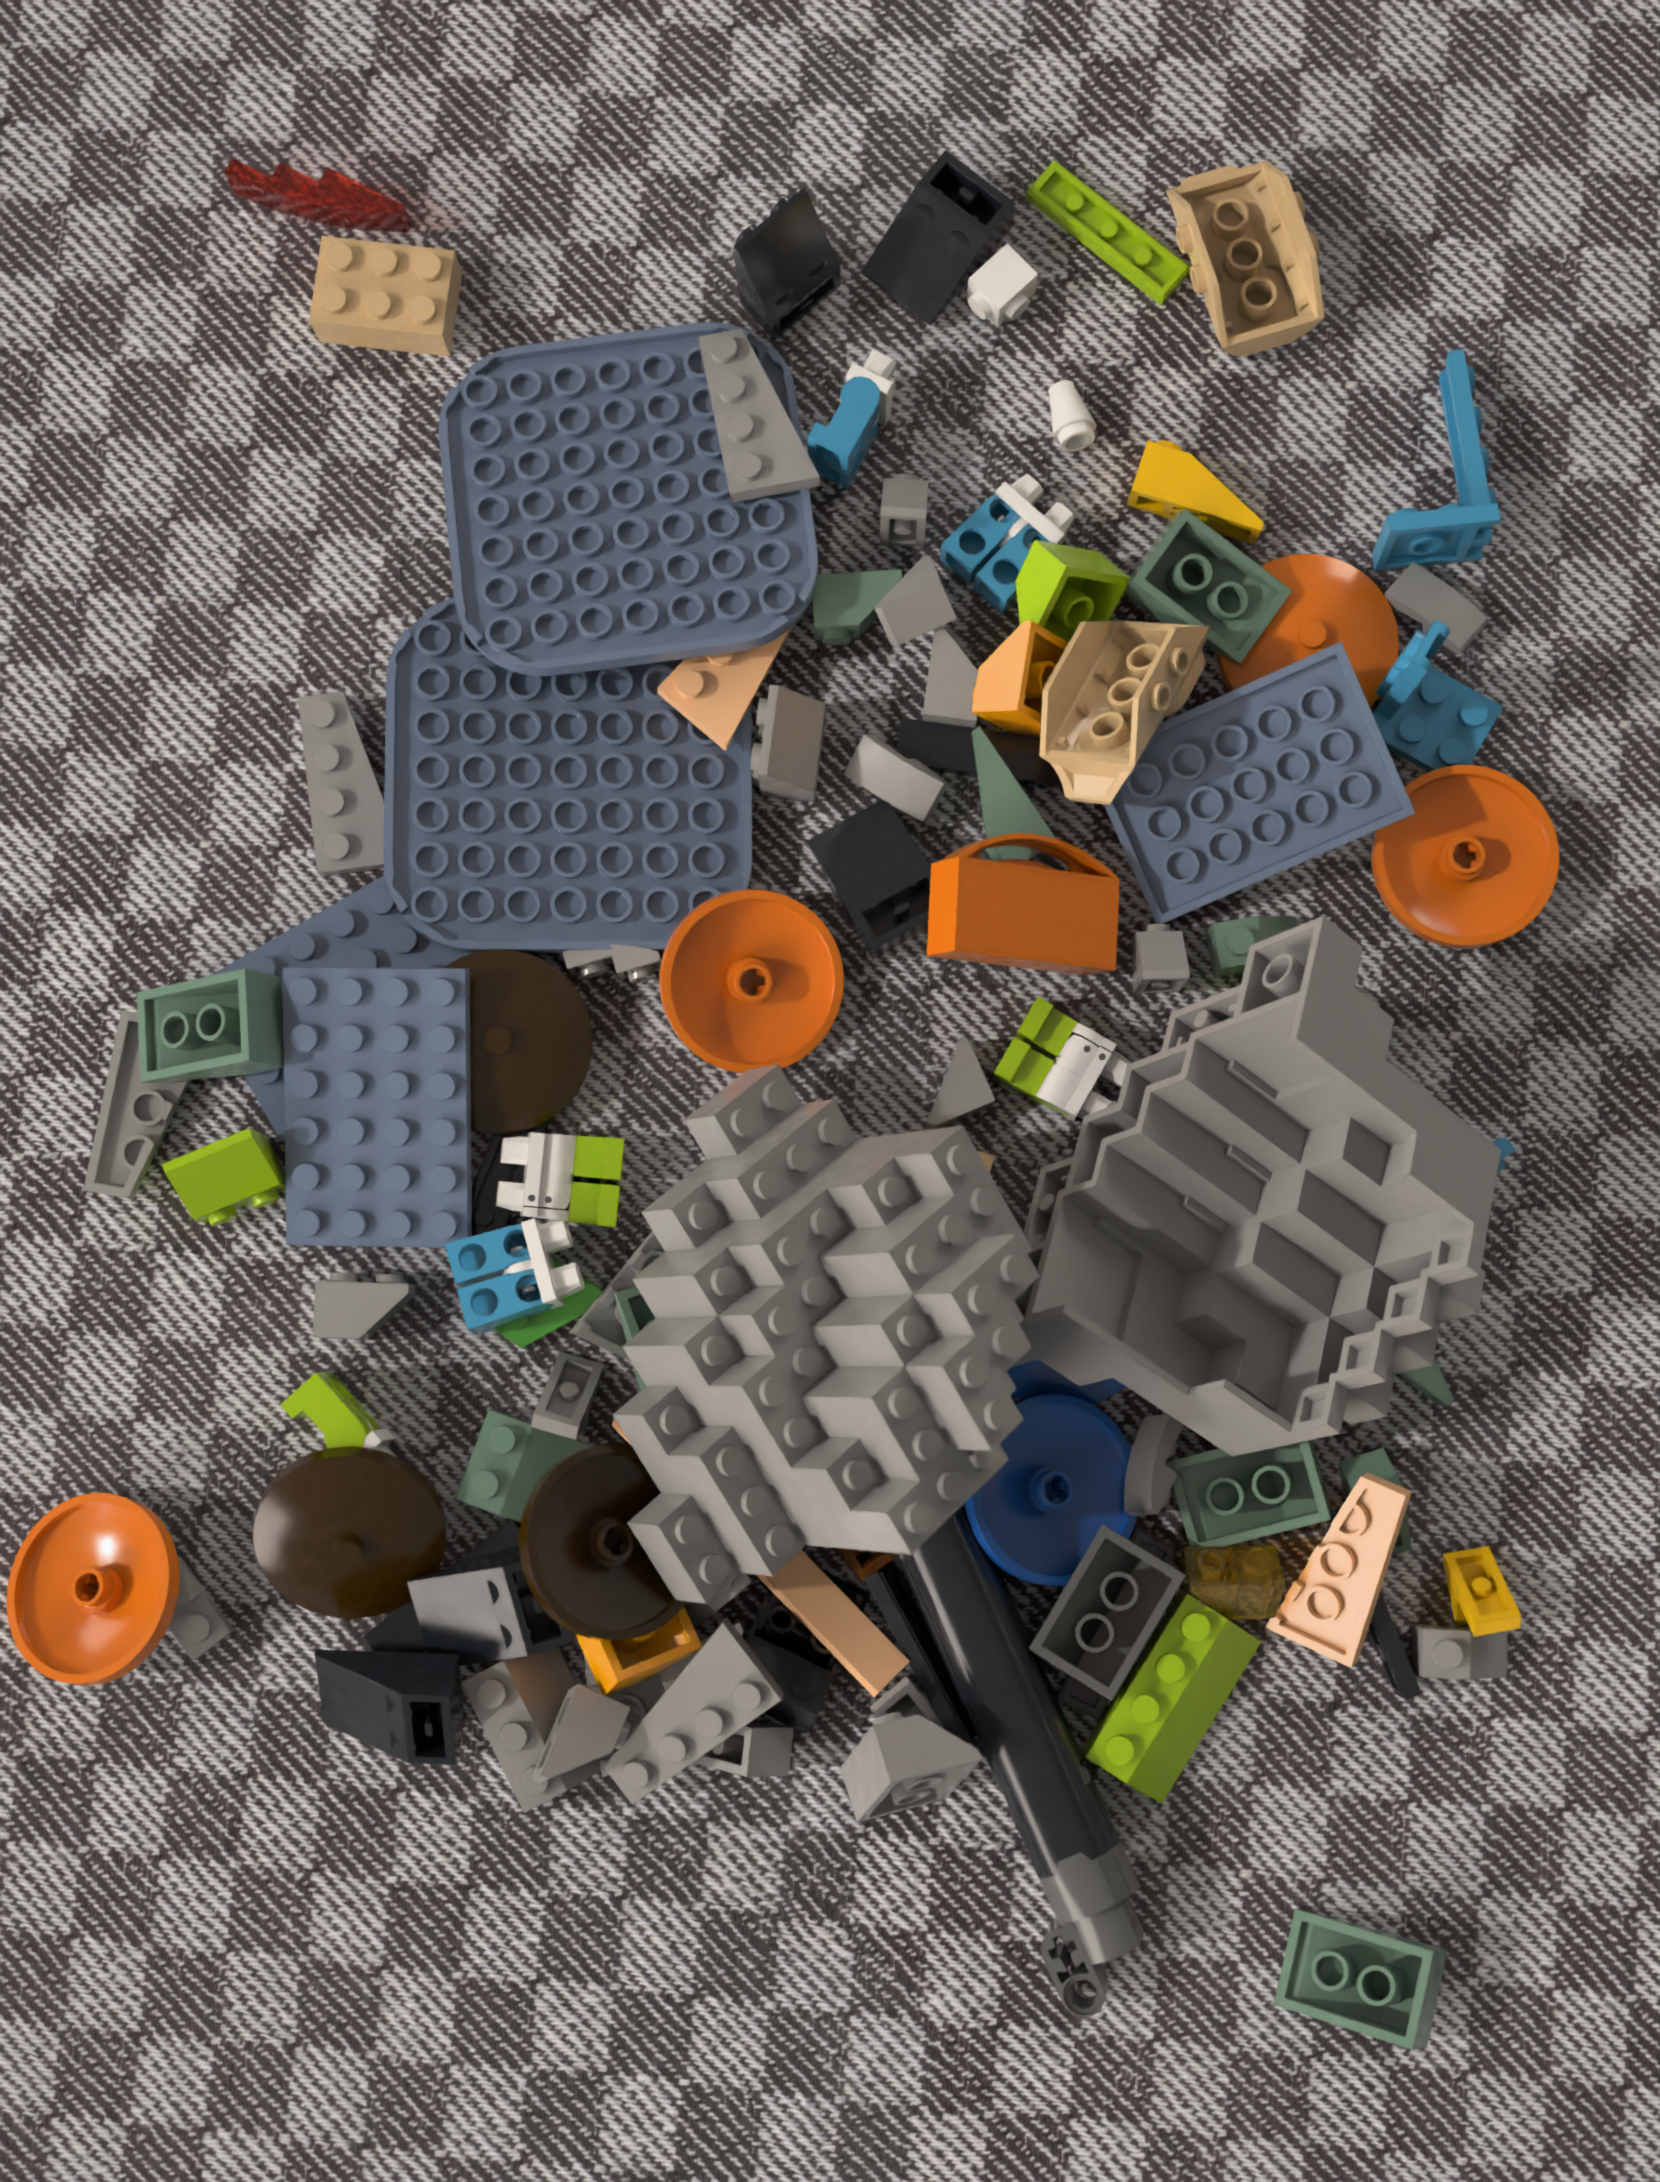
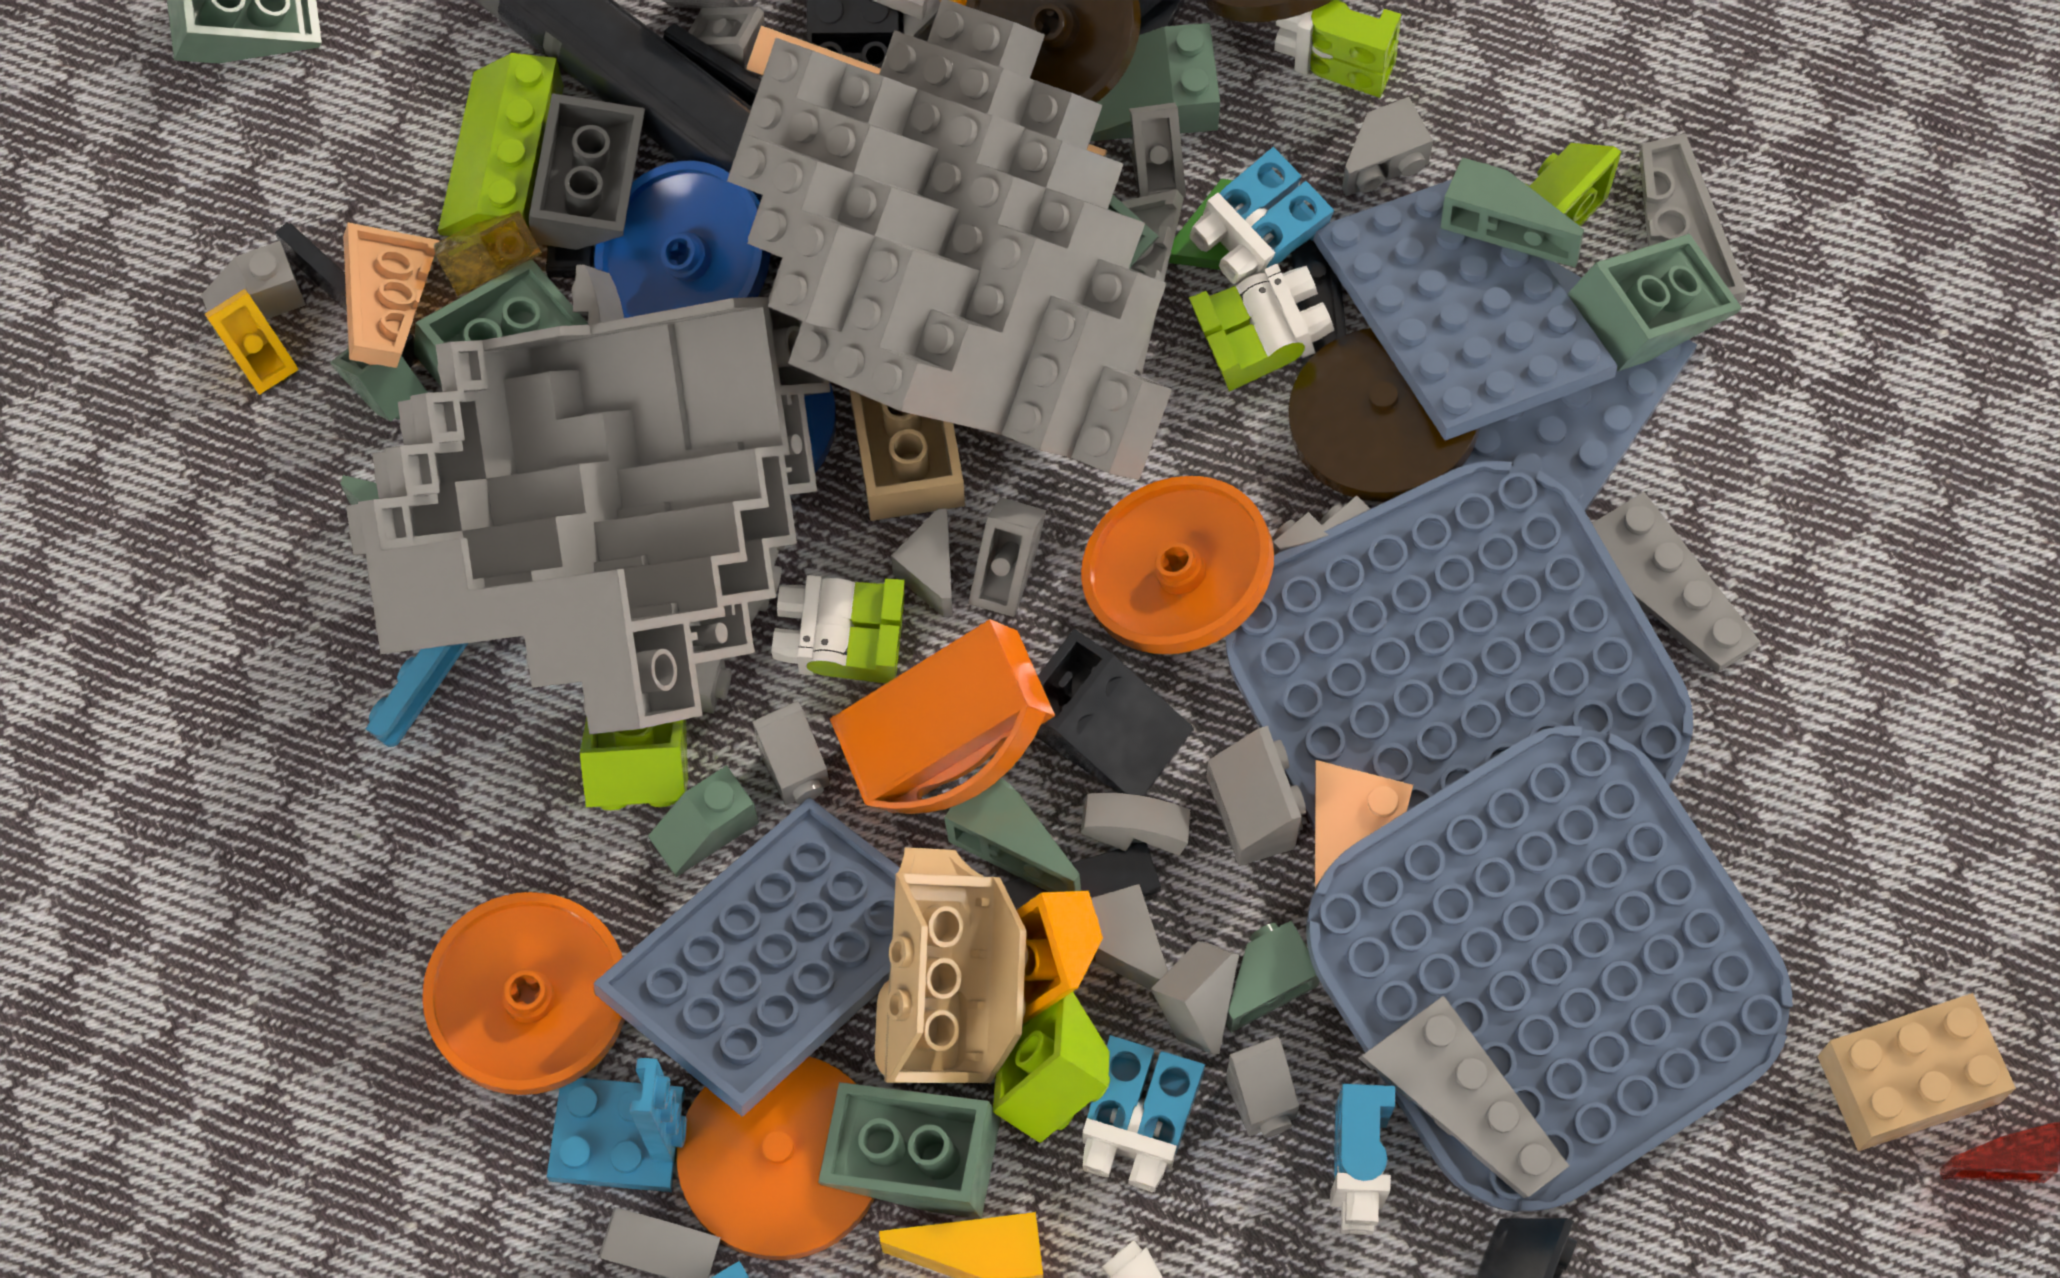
camera: 150 degrees right, 15 degrees down
(296, 1168) = (1506, 212): none -> sand green slope
(889, 1066) = (1006, 556): none -> light grey slope

